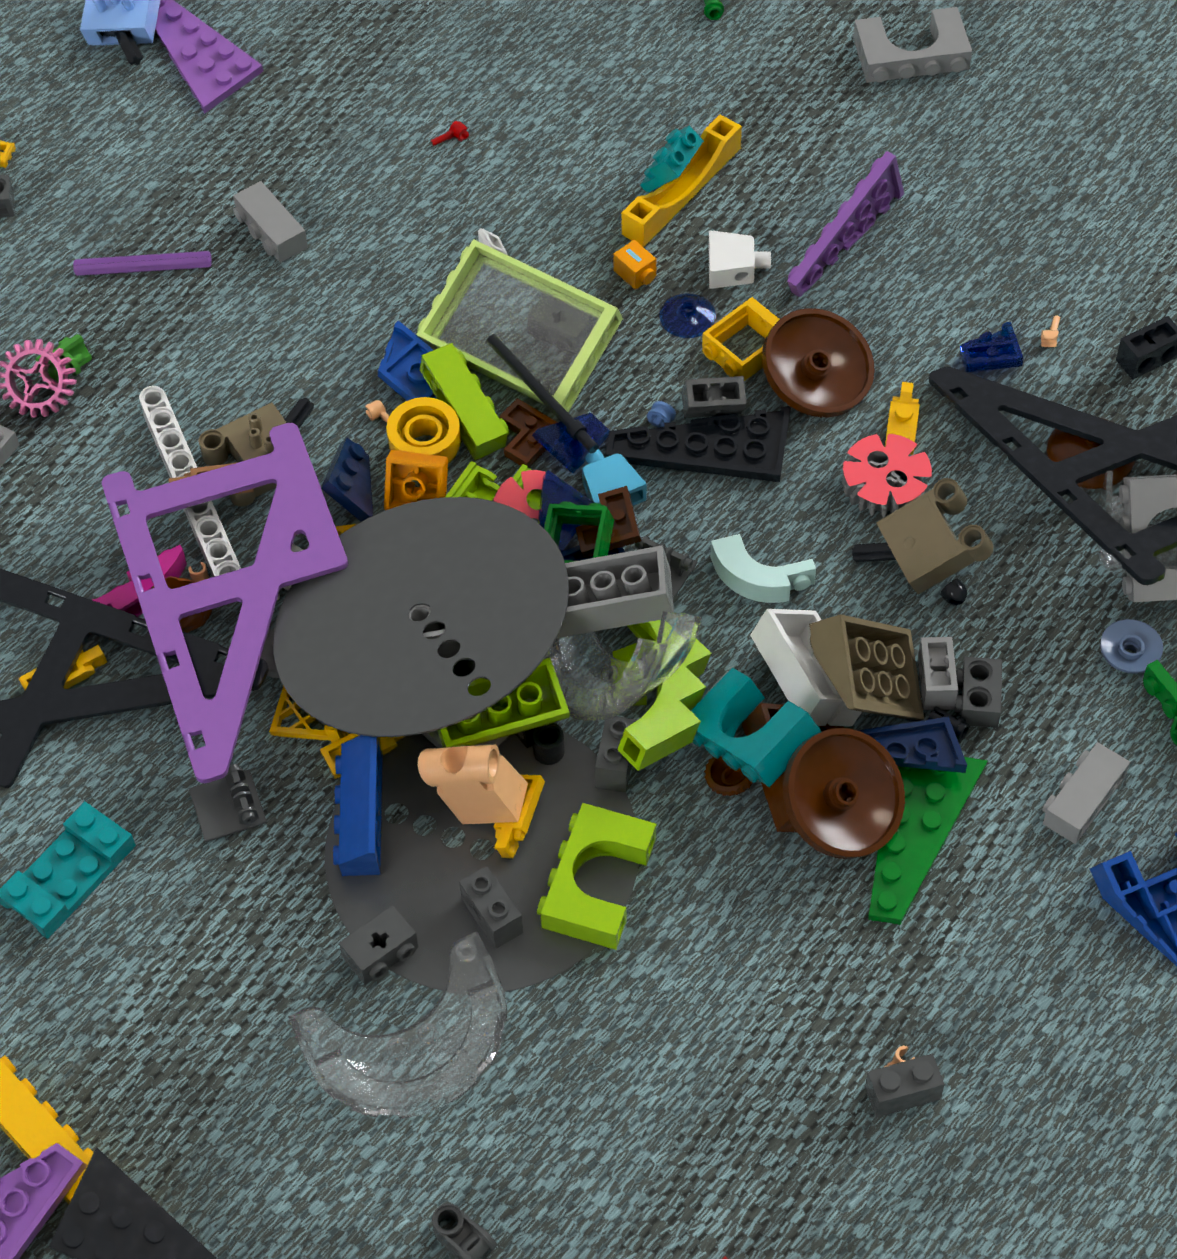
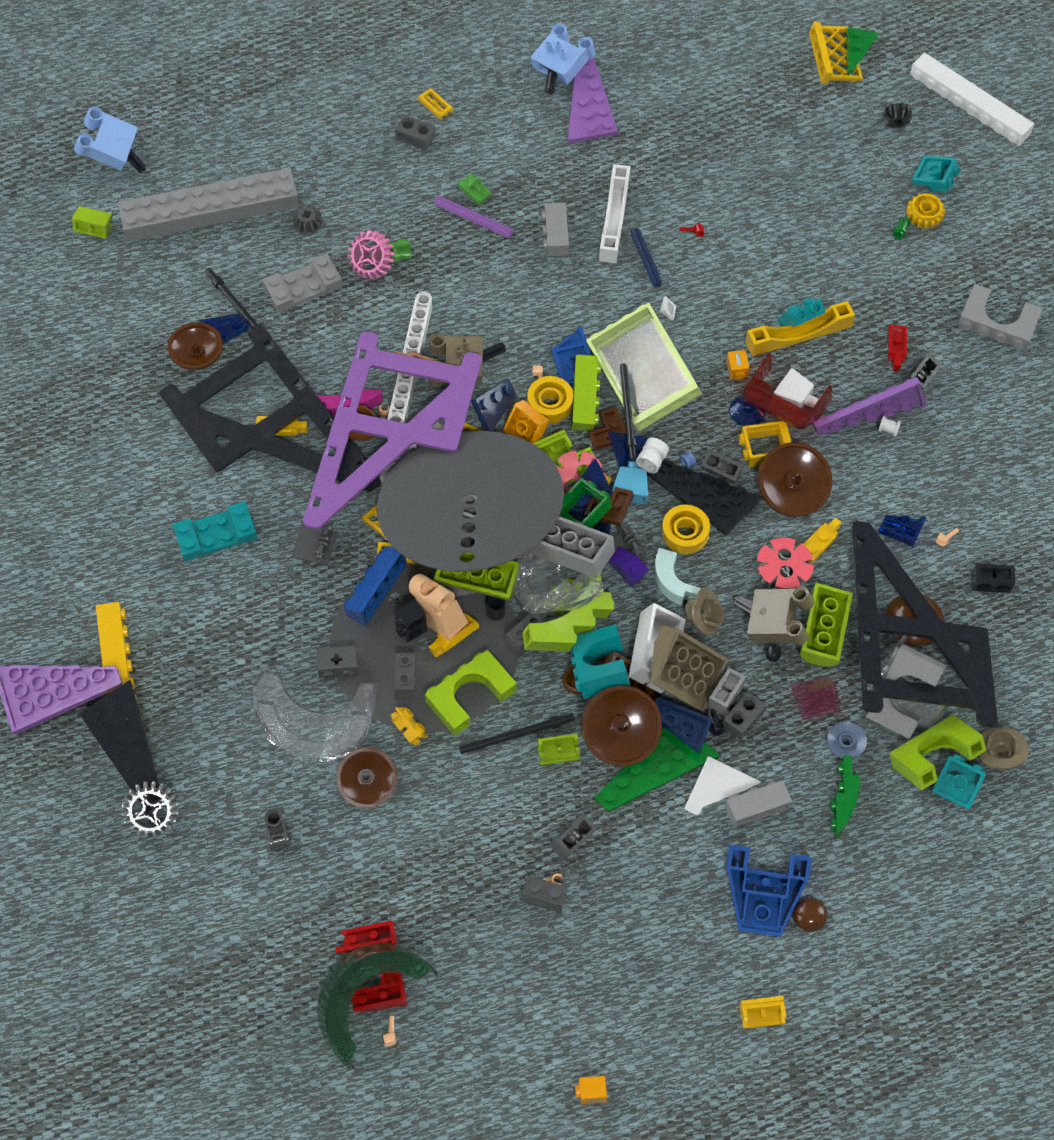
camera: 30 degrees right, 5 degrees up
(120, 226) = (474, 189): none -> bright green hips
(350, 191) = (615, 214): none -> white arch
(415, 198) = (646, 257): none -> dark blue axle
(447, 826) = (410, 621): none -> black brick
(557, 974) = (414, 731): none -> yellow hinge
(560, 1074) = (370, 791): none -> reddish brown dish
(615, 428) = (652, 455): none -> white wheel
(694, 588) = (628, 566): none -> dark purple slope
(729, 282) = (759, 395): none -> clear red windscreen
(730, 482) = (688, 517): none -> yellow piece
(737, 850) = (553, 722): none -> black bar
(774, 880) = (558, 749): none -> lime hinge
(815, 141) = (897, 345): none -> red hinge
(832, 589) = (705, 612): none -> dark tan hat
(870, 146) = (924, 370): none -> pearl dark grey brick
(880, 238) = (889, 426): none -> white bush
(884, 983) = (573, 836): none -> dark grey brick
(1003, 516) = (826, 625): none -> lime brick
(1011, 800) = (716, 783): none -> white sticker
(1049, 616) = (815, 697): none -> clear pink slope

